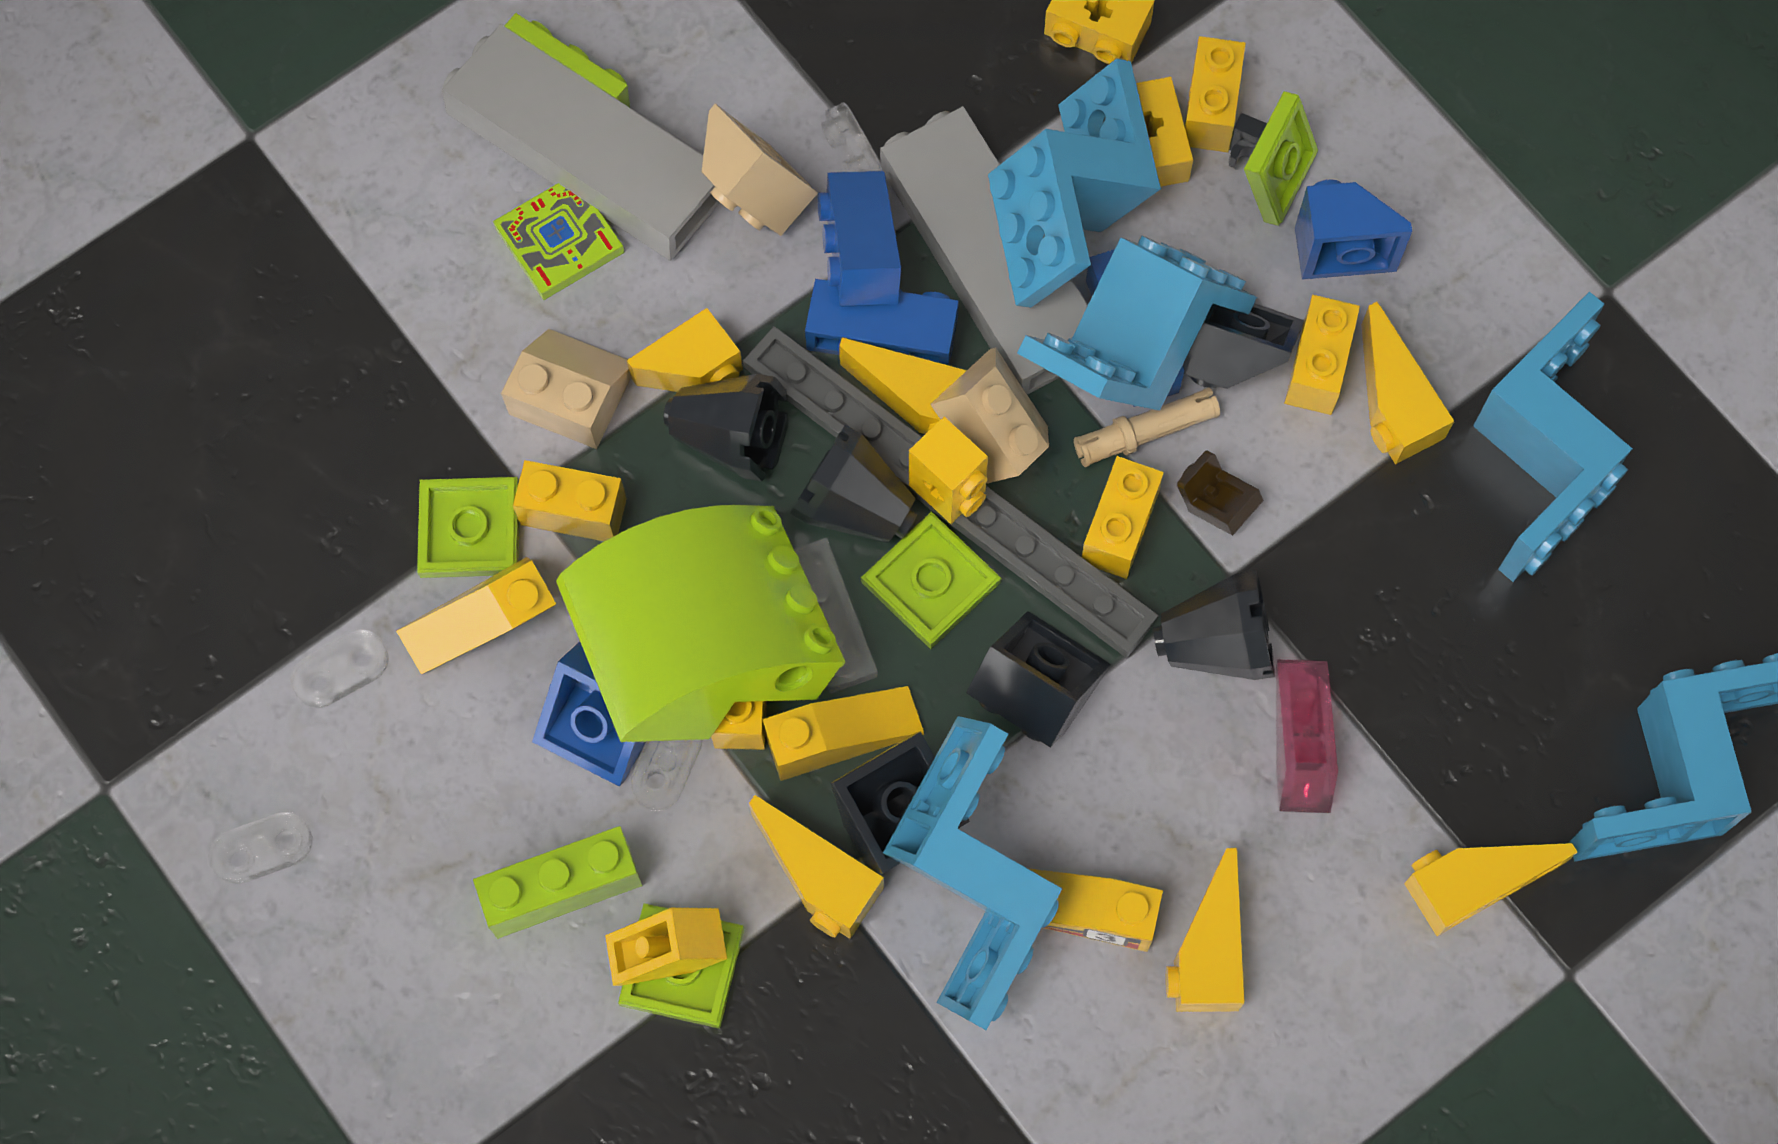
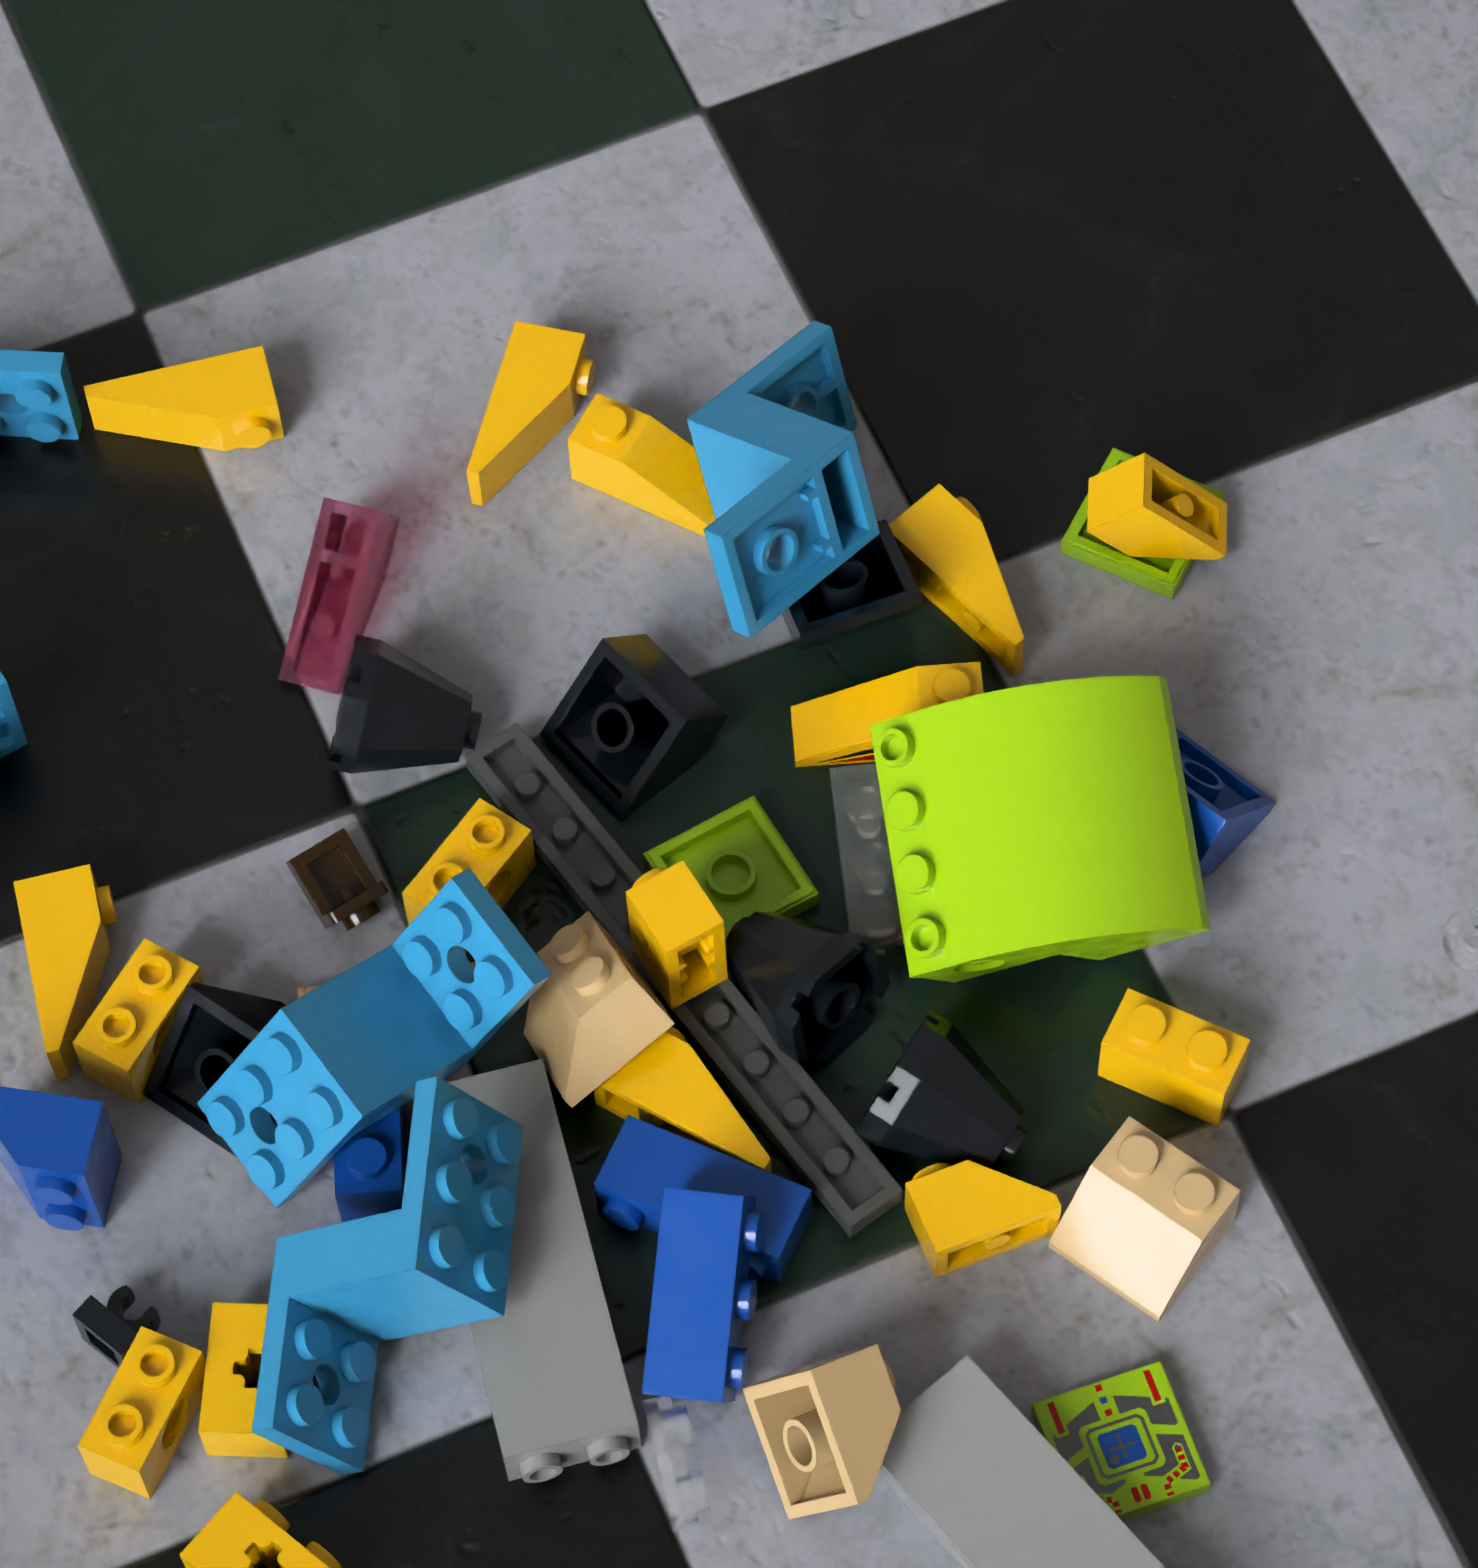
camera: 165 degrees left, 10 degrees down
(467, 527) = (1313, 1077): lime tile -> none
(477, 615) = (1304, 944): yellow slope -> none
(557, 882) = (1272, 620): lime brick -> none
(1281, 159) = (92, 1273): lime tile -> none

